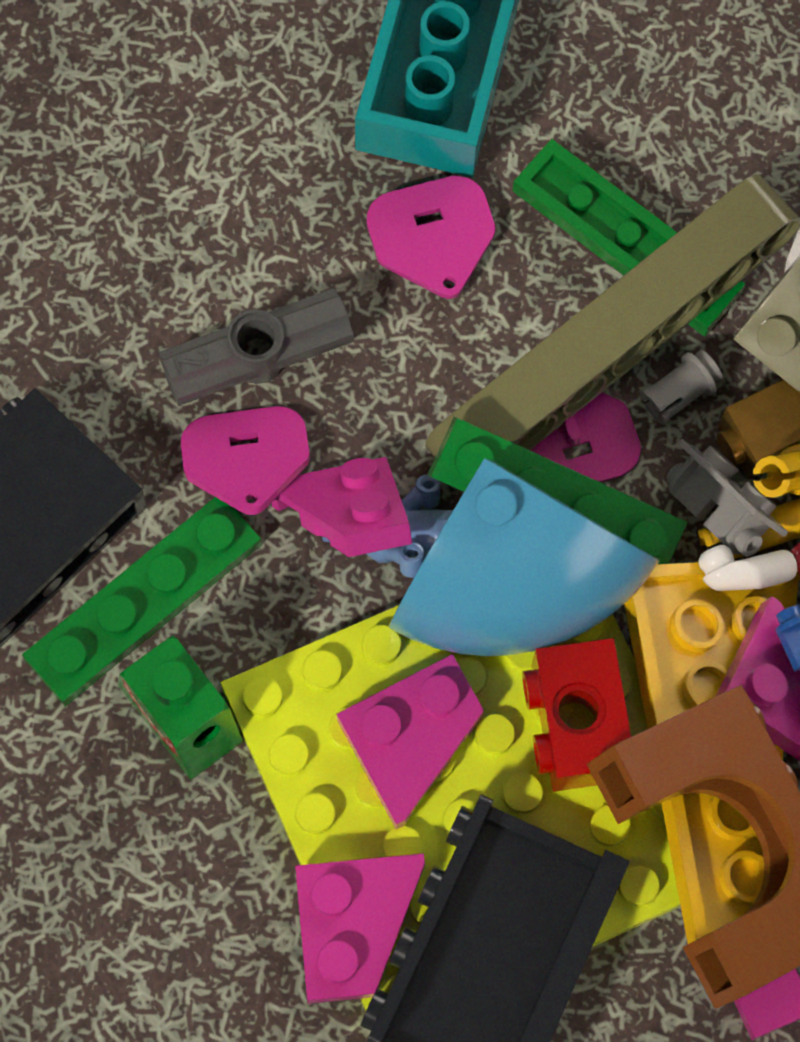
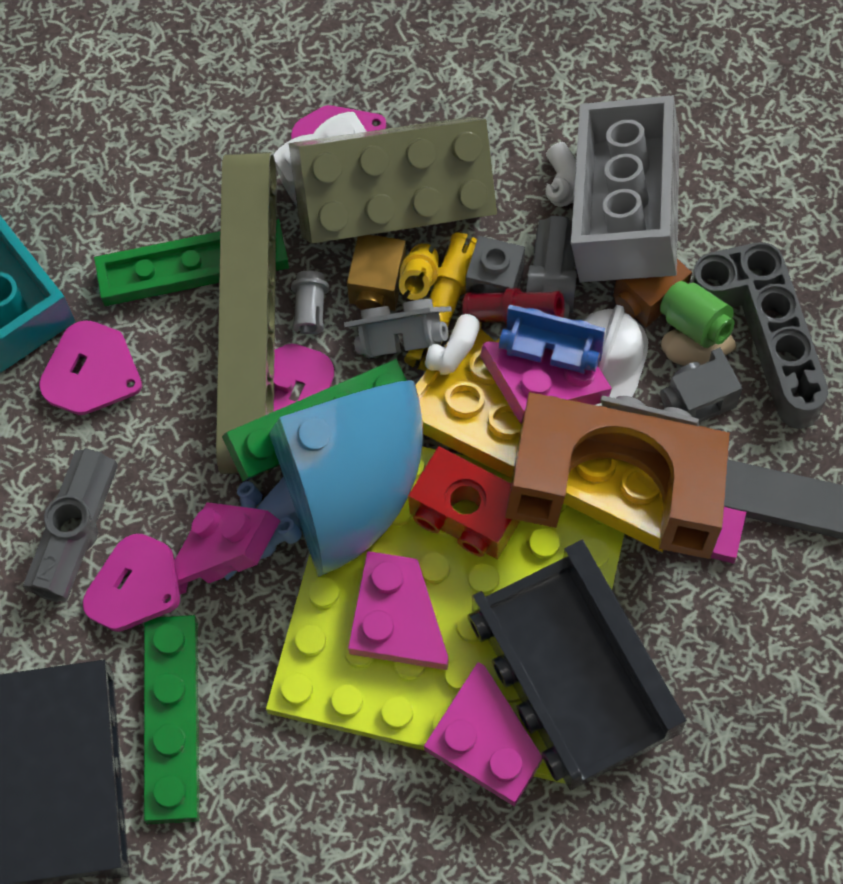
camera: 45 degrees left, 5 degrees down
(180, 705) = (262, 742): green torso -> none

